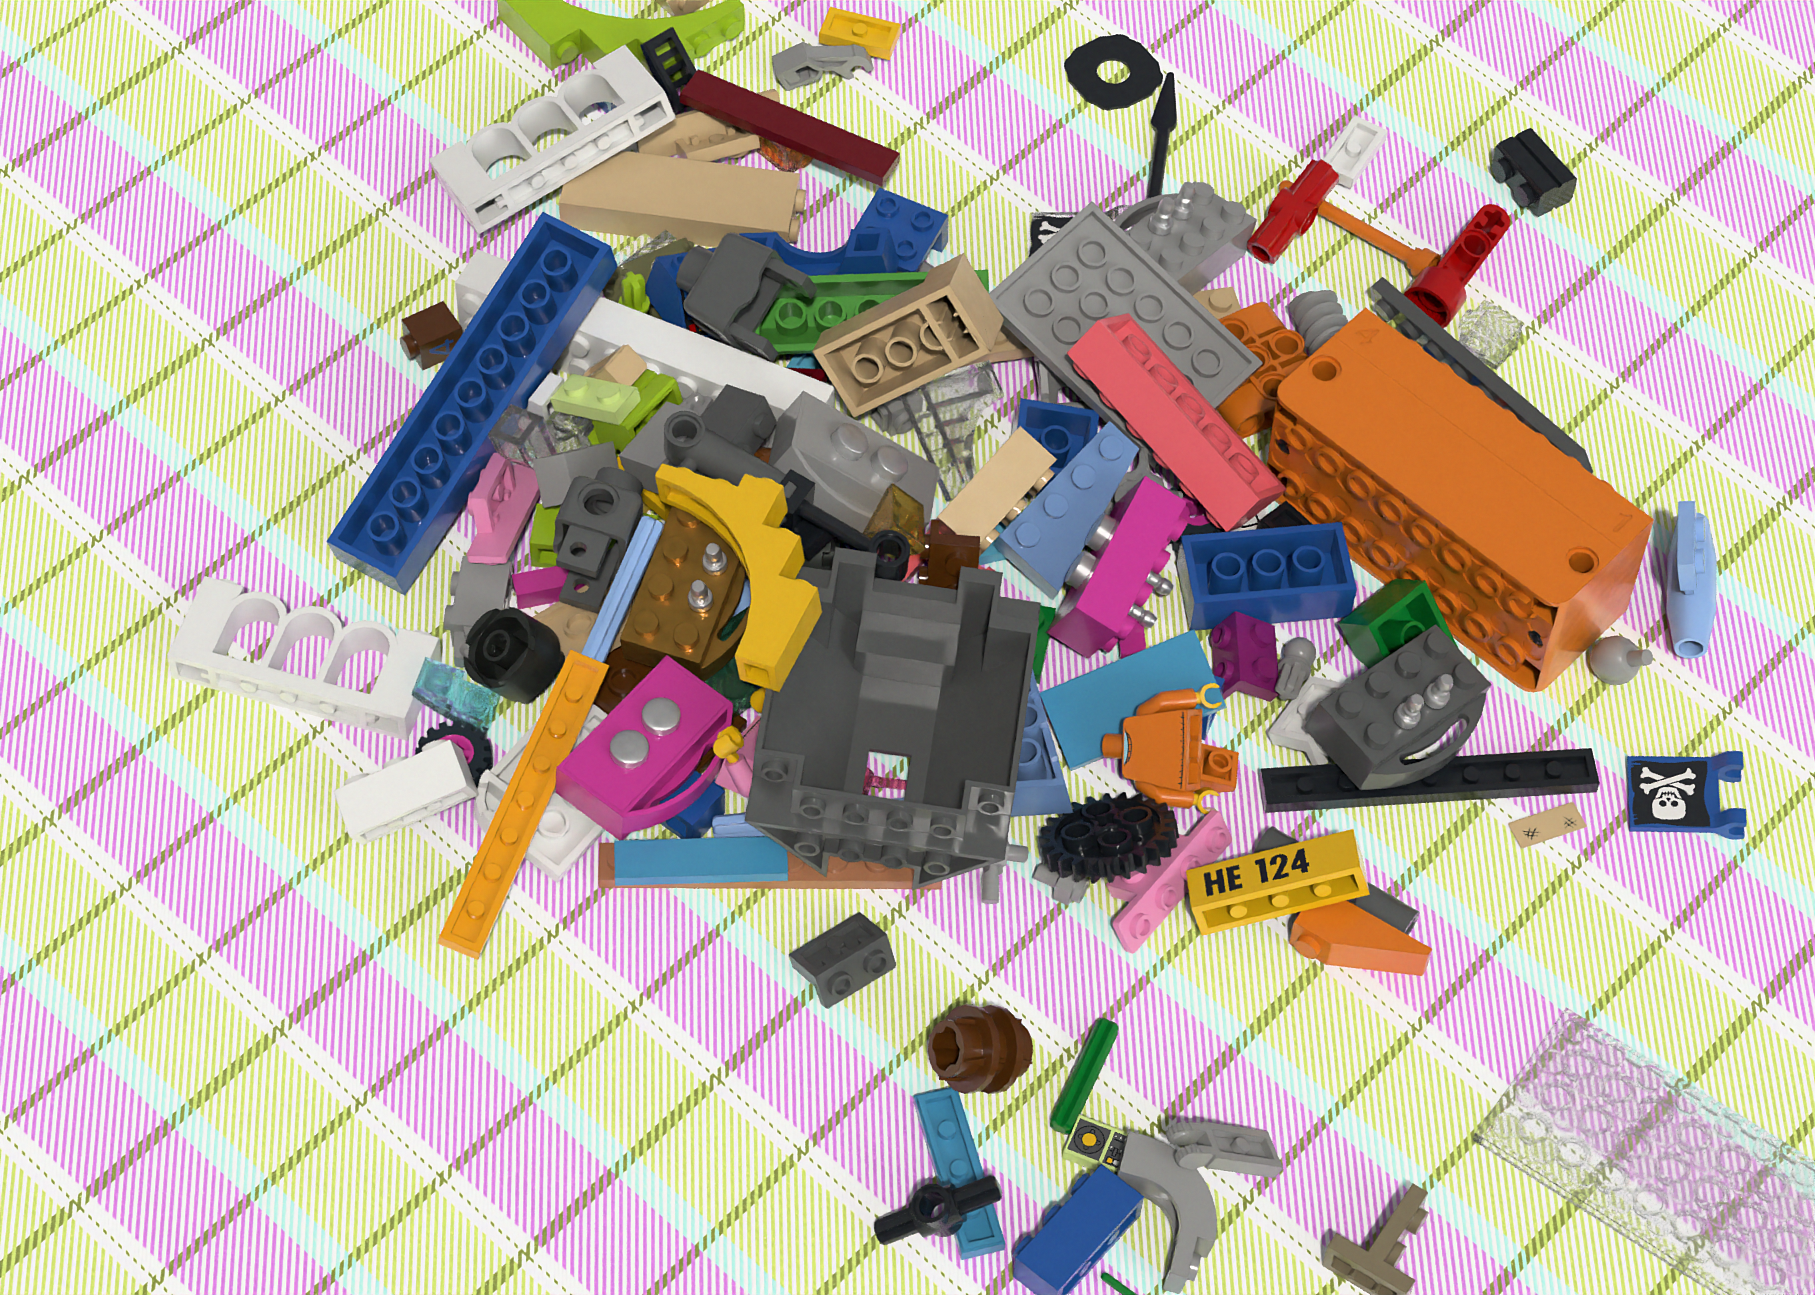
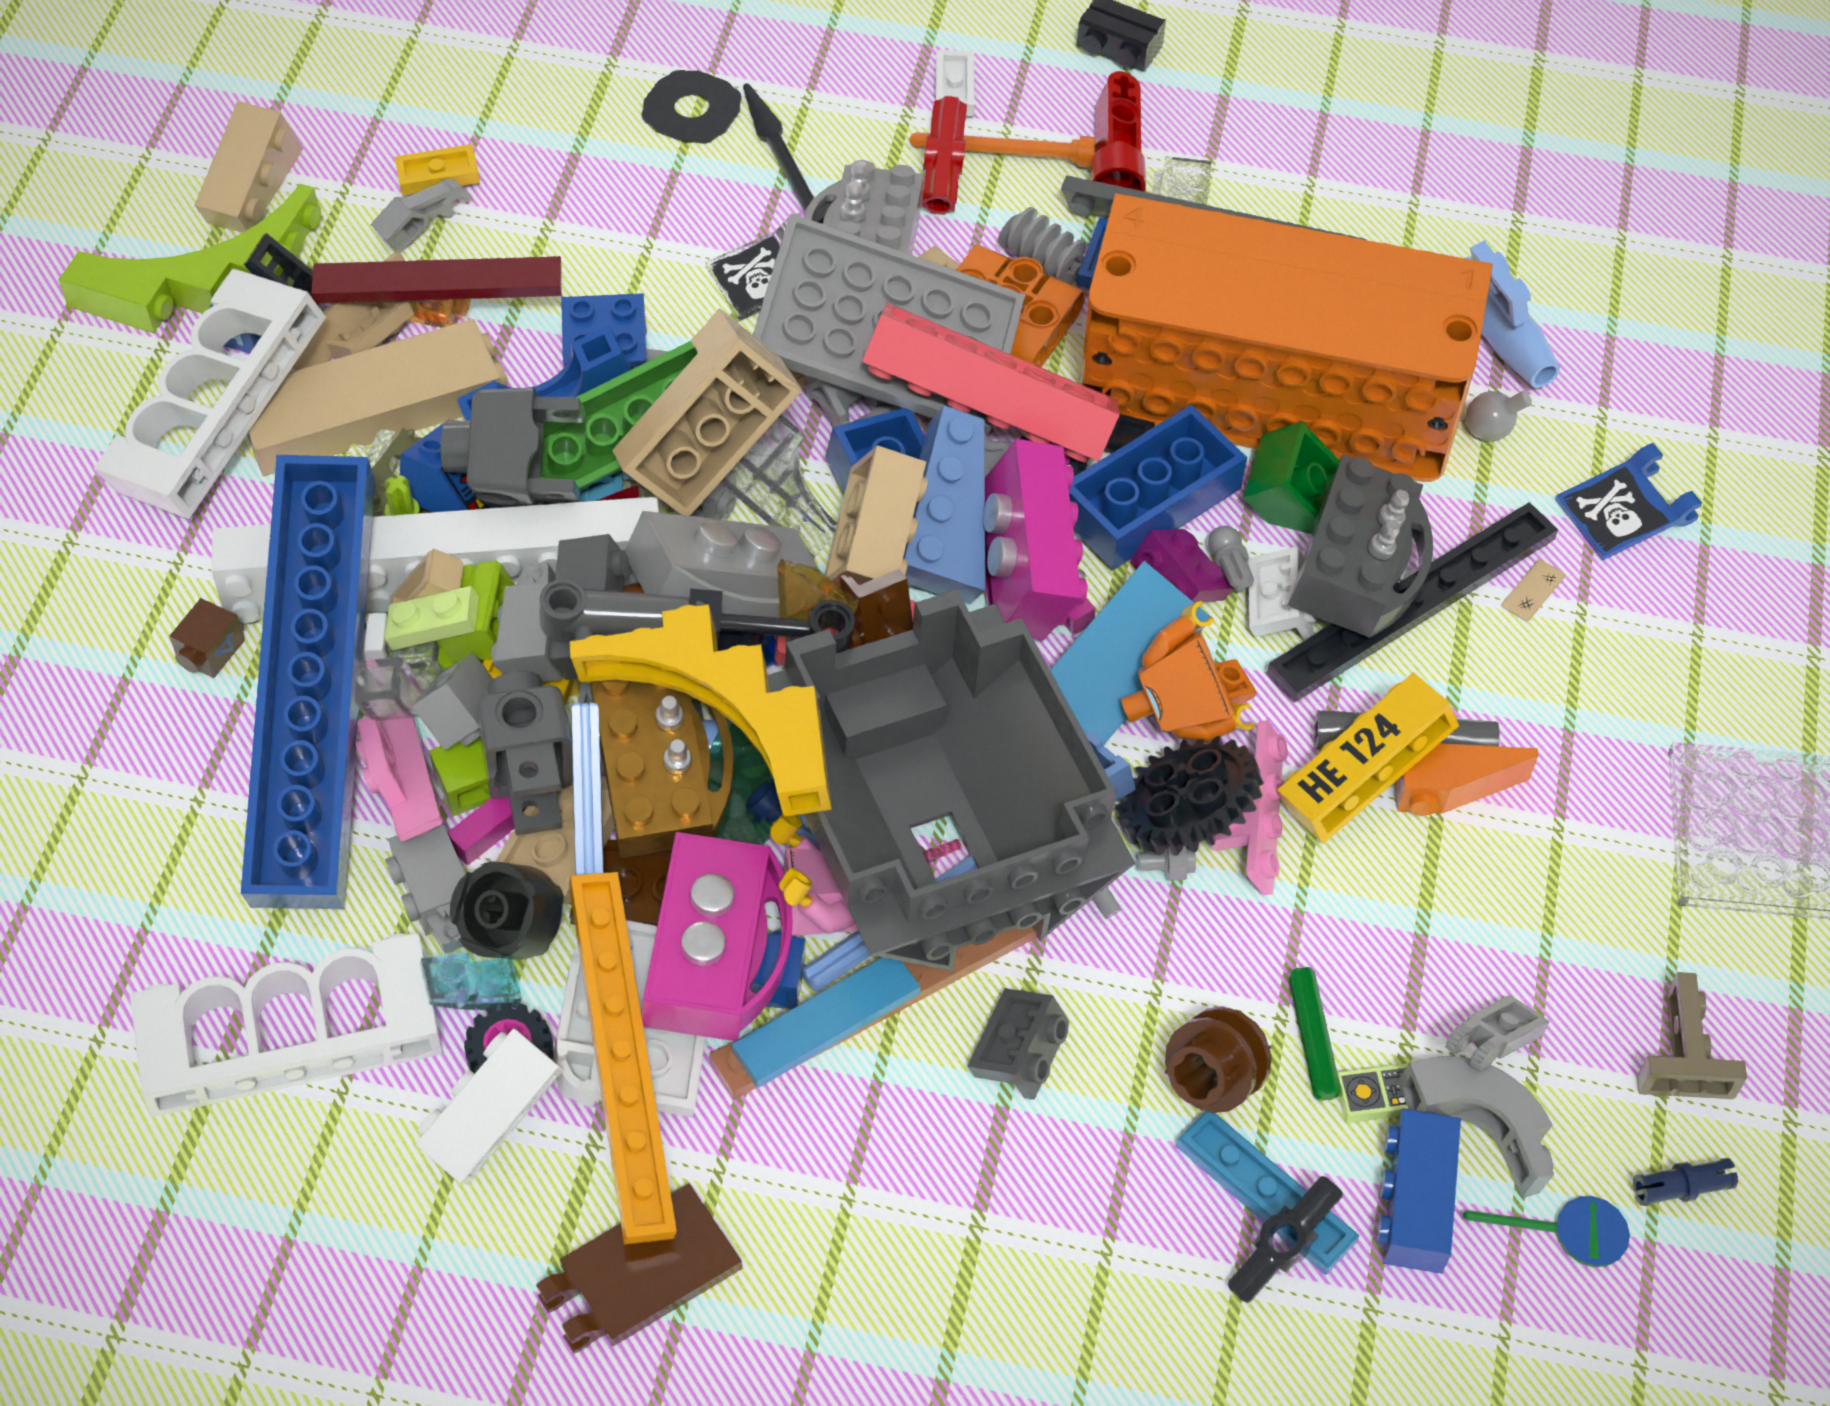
camera: 30 degrees left, 0 degrees up
(438, 980) = (642, 1281): none -> reddish brown tile

